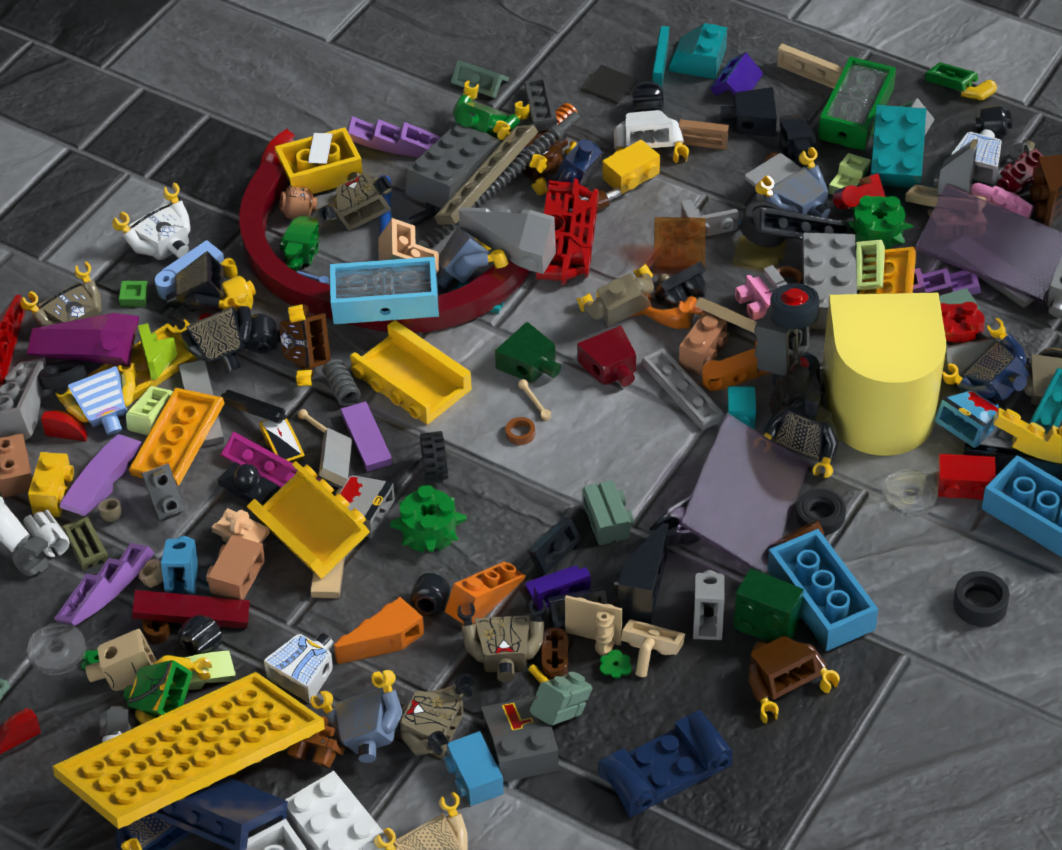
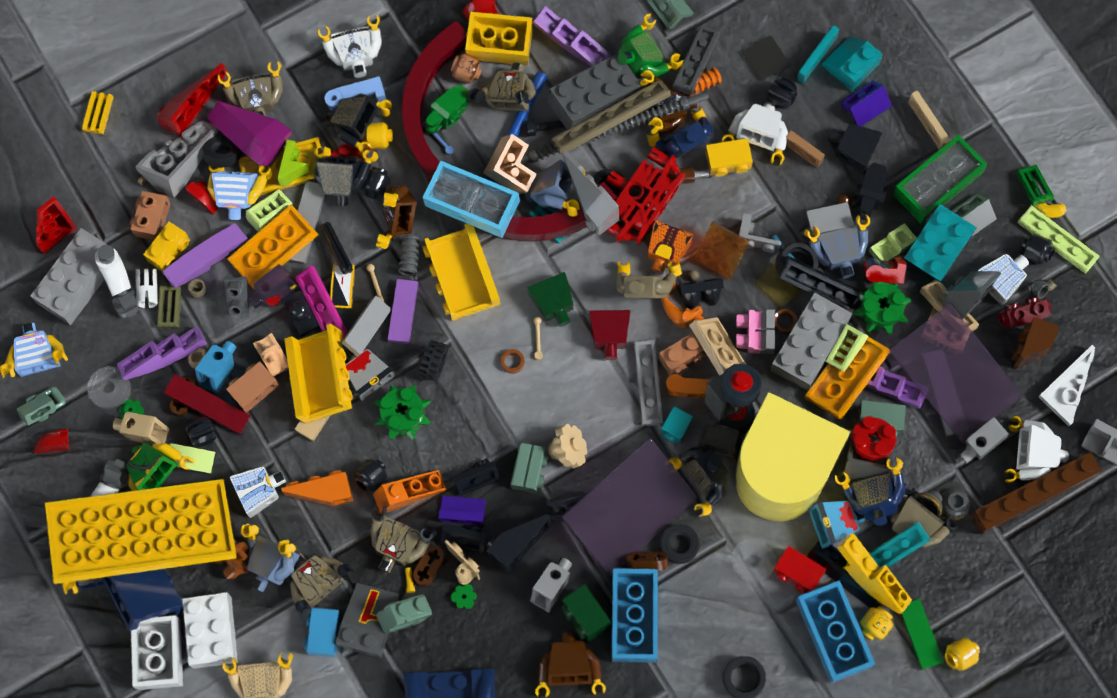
camera: 30 degrees right, 25 degrees up
(133, 293) = (309, 95): bright green tile -> none
(204, 465) = (273, 287): none -> clear purple torso
(320, 148) = (502, 30): white sticker -> none
(617, 258) = (667, 246): none -> torso
(636, 472) = (568, 446): none -> tan plant
(648, 638) = (497, 590): tan plate -> none
(1003, 199) = (993, 329): bright pink hinge -> none
(1021, 112) = (1064, 243): none -> yellowish green tile

